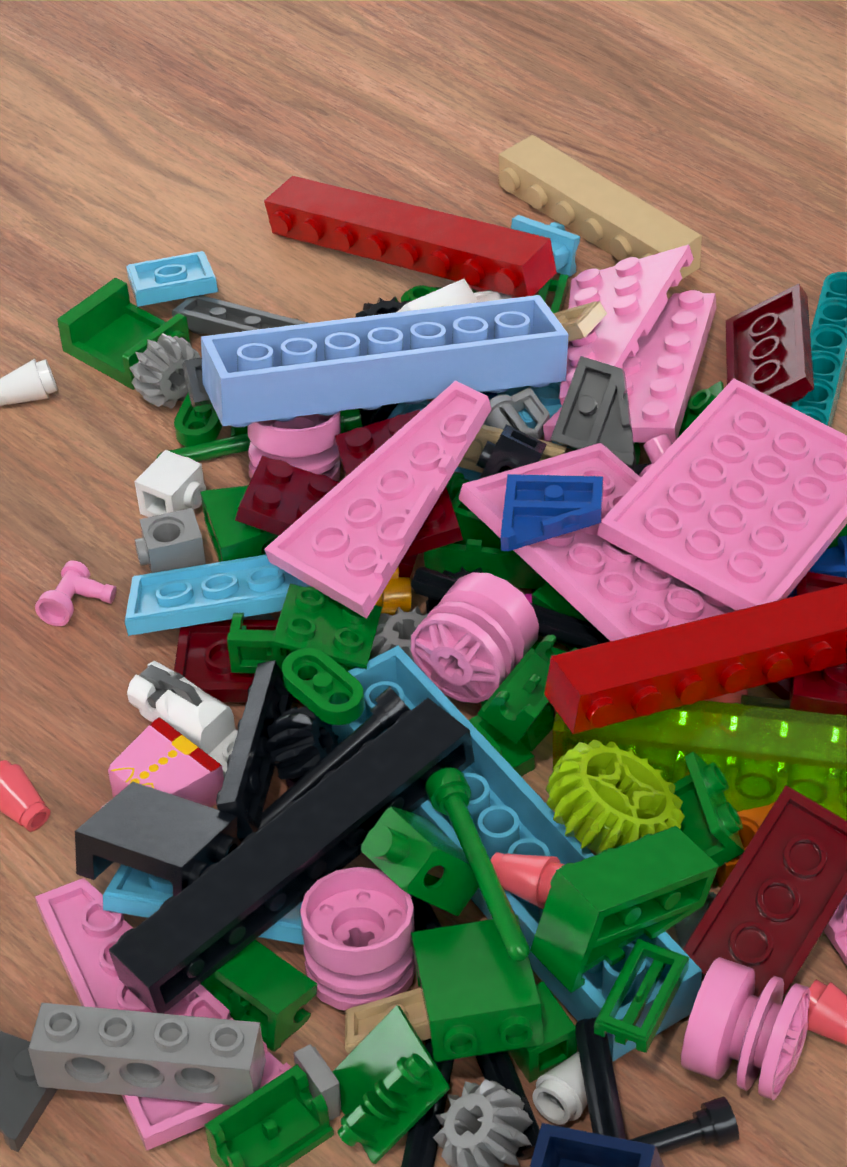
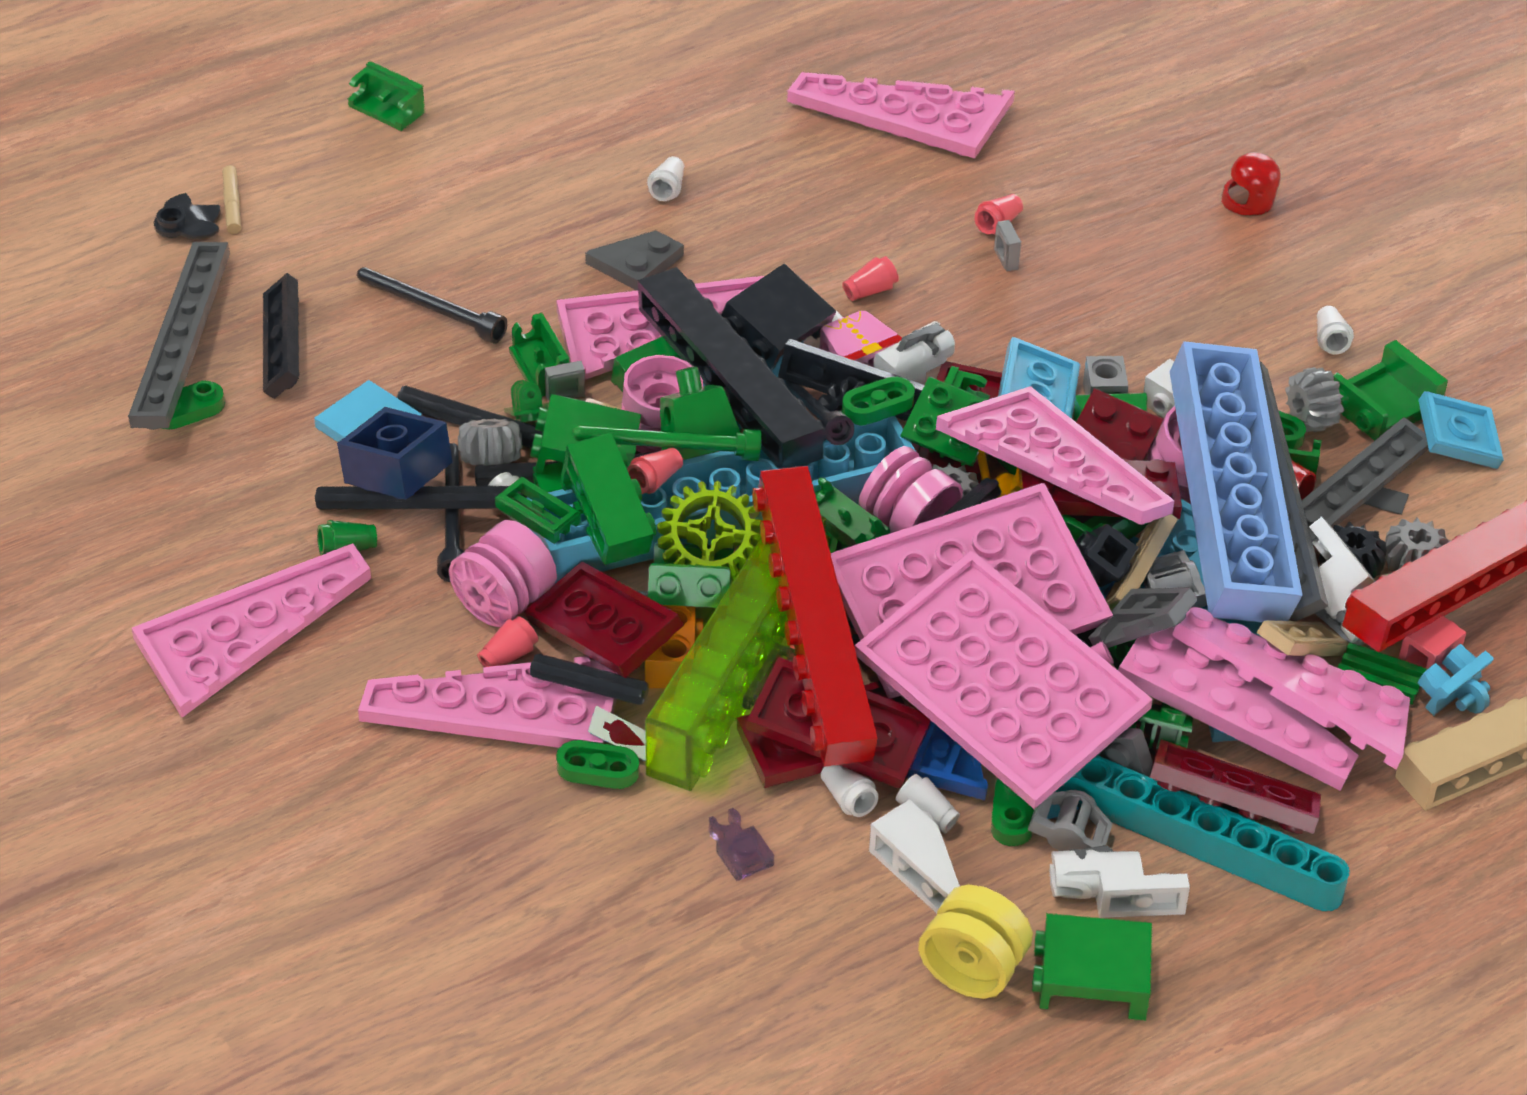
camera: 100 degrees right, 0 degrees up
(56, 605) = (1083, 333): bright pink piece -> none
(146, 1054) = (602, 292): light grey brick -> none
(363, 284) = (1411, 541): none -> light grey gear
(548, 507) = (991, 516): blue wing -> none

